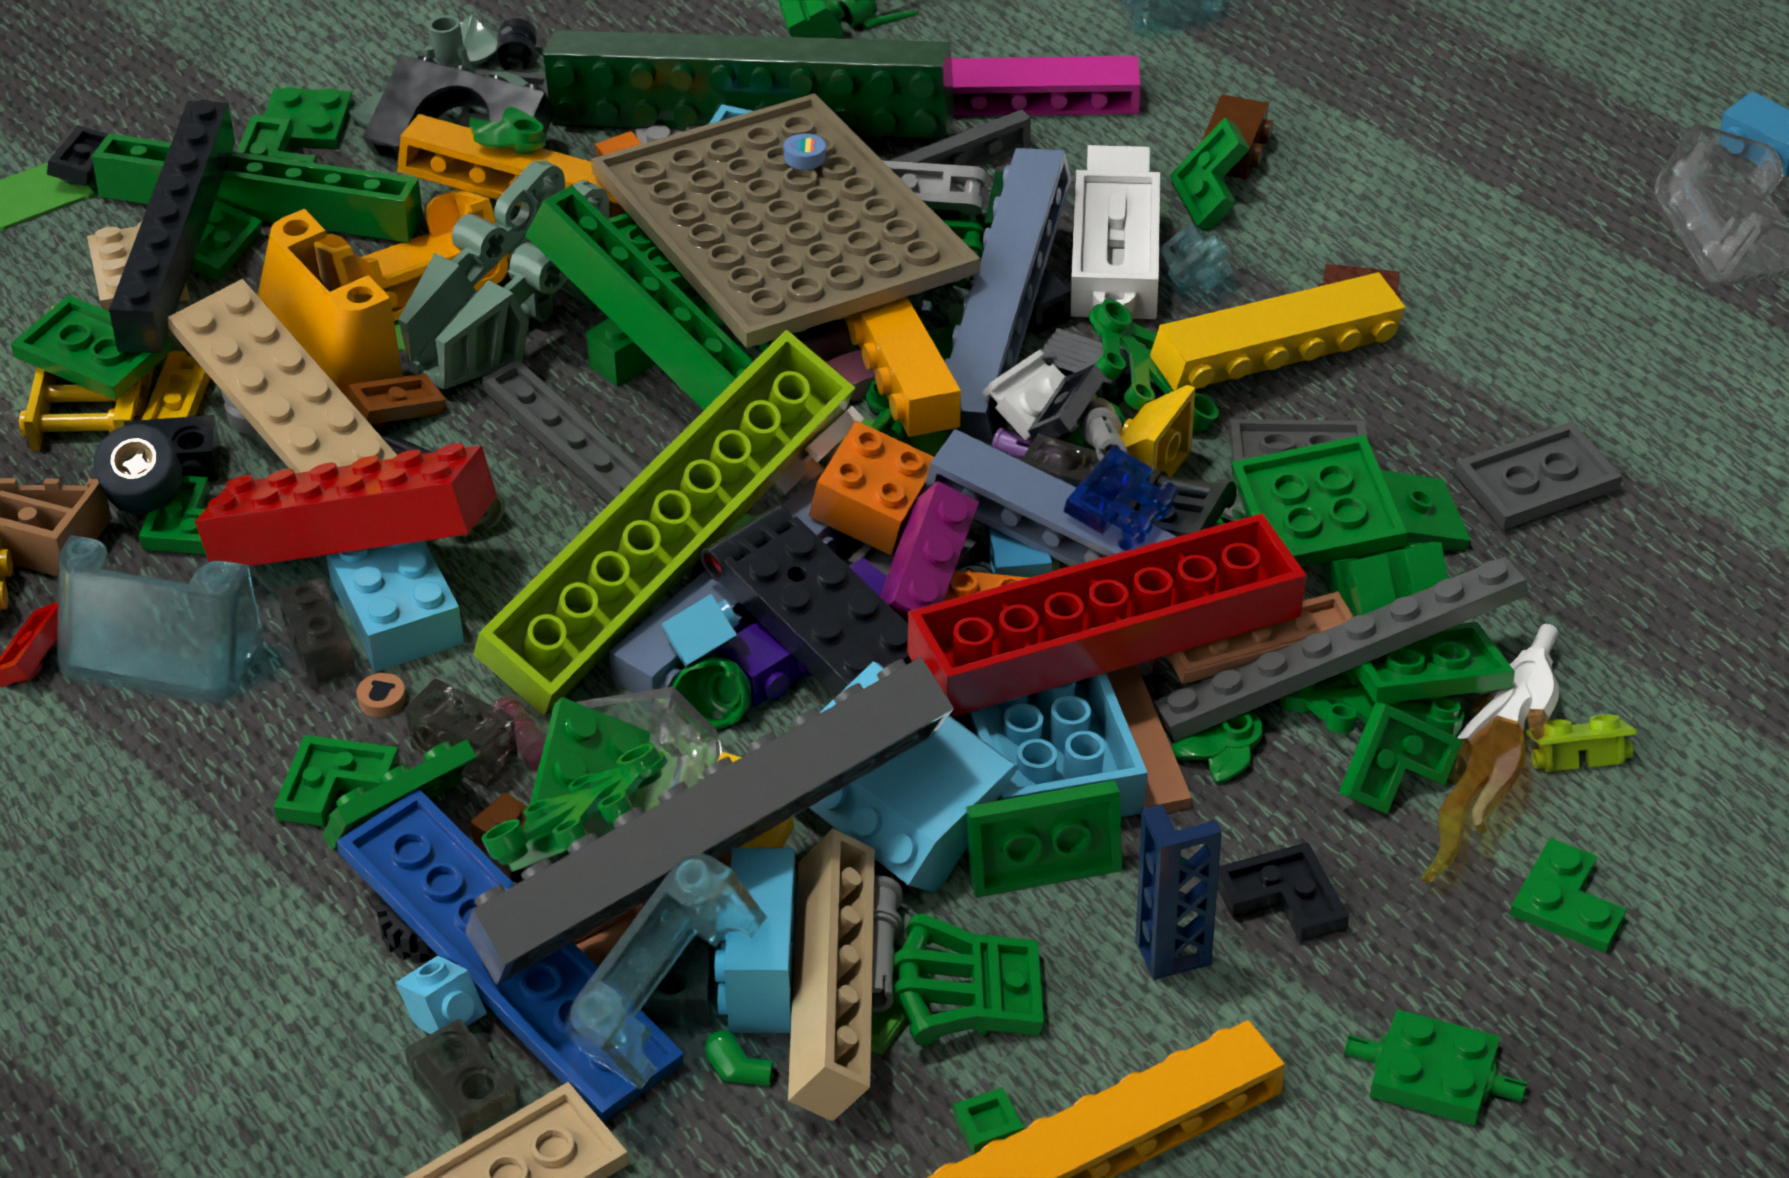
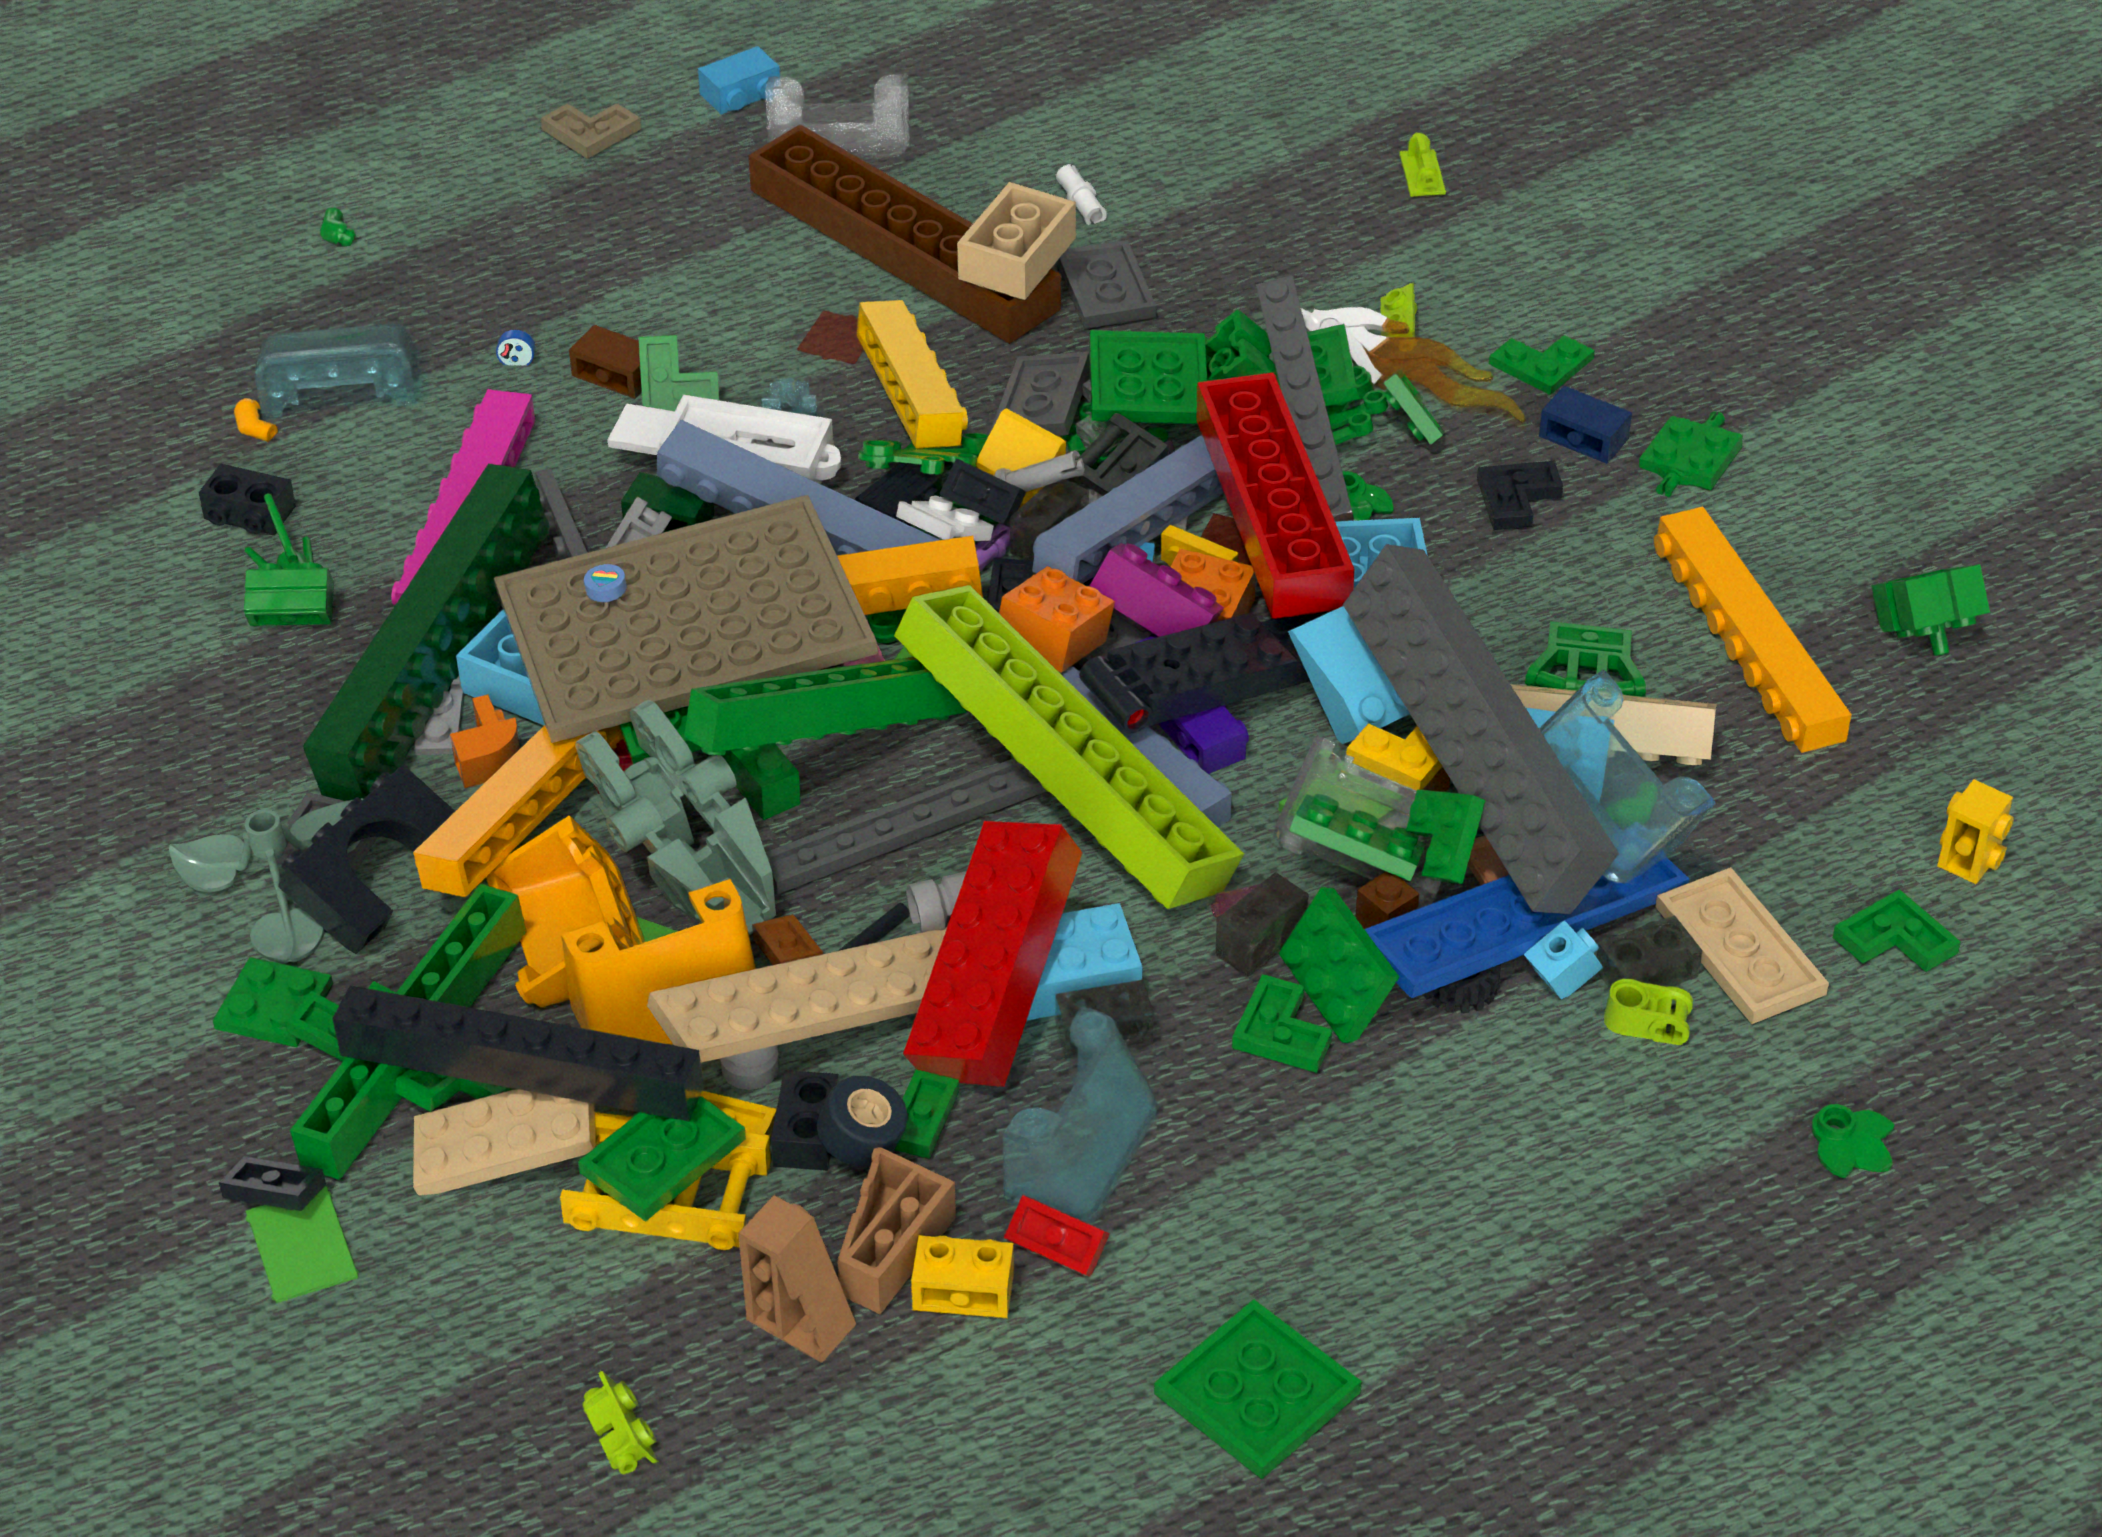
camera: 80 degrees left, 0 degrees up
(378, 1097) = (1646, 1009): none -> lime piece
(381, 695) = (1178, 991): nougat tile -> none
(515, 131) = (476, 786): green plate -> none
(516, 43) = (229, 816): black wheel -> none
(635, 770) = (1440, 796): green plant -> none
(701, 629) = (1210, 740): medium azure brick -> none
(716, 686) = (1246, 758): green hair -> none
(986, 1118) = (1717, 675): green plate -> none
(1044, 838) = (1459, 574): green plate -> none
(1108, 491) = (1134, 467): clear blue plate -> none
(1163, 905) = (1570, 510): dark blue fence -> none
(1231, 71) = (515, 348): none -> tile
(1437, 943) = (1585, 424): none -> dark blue brick
(1493, 346) = (1016, 240): none -> tan brick
(1535, 297) = (889, 227): none -> reddish brown brick
(1623, 52) = (593, 134): none -> dark tan plate
(1701, 431) = (1081, 193): none -> white pin

